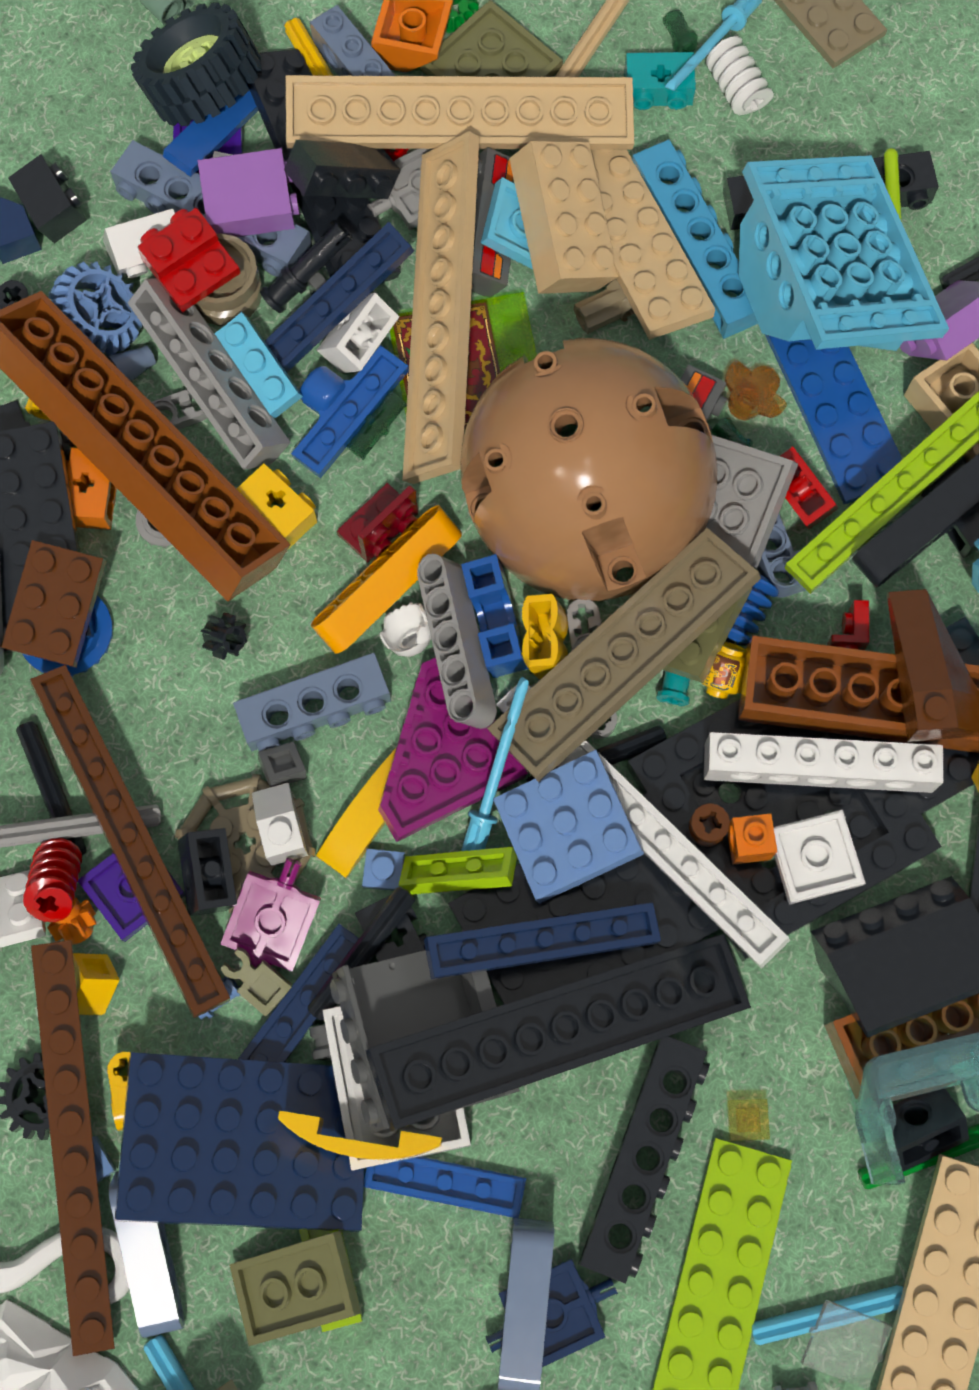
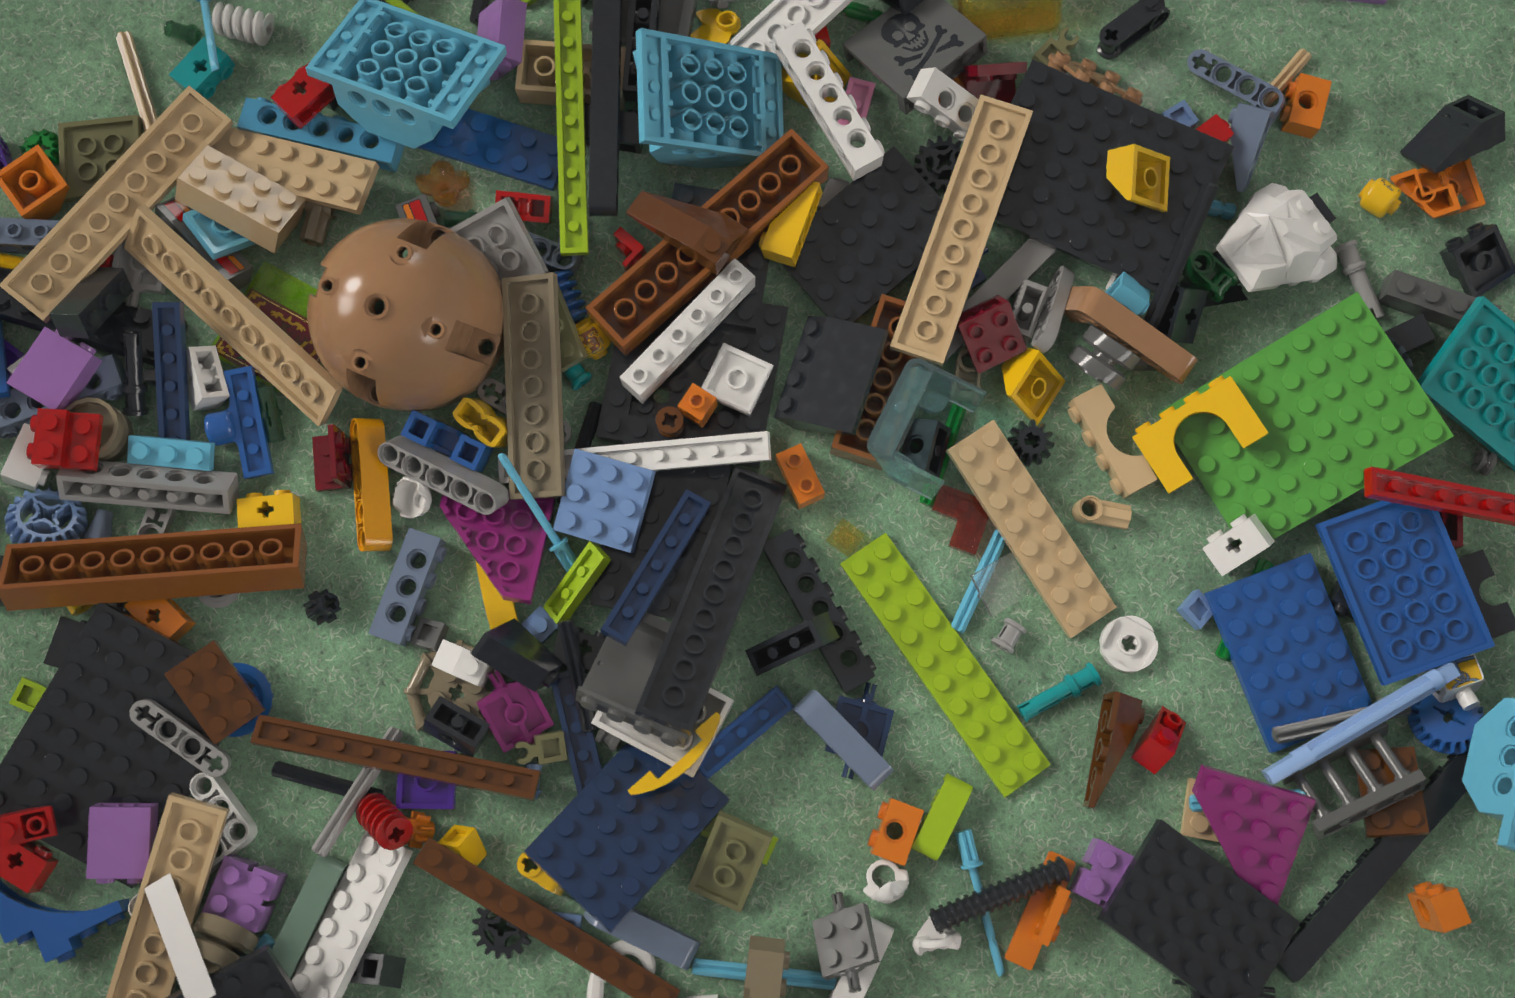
camera: 50 degrees left, 5 degrees up
(331, 874) = (518, 655): none -> black slope
(583, 1159) = (792, 643): none -> black brick
(716, 188) = (303, 107): none -> red brick
(772, 1013) = (800, 476): none -> orange brick
(891, 1242) = (969, 516): none -> clear red plate

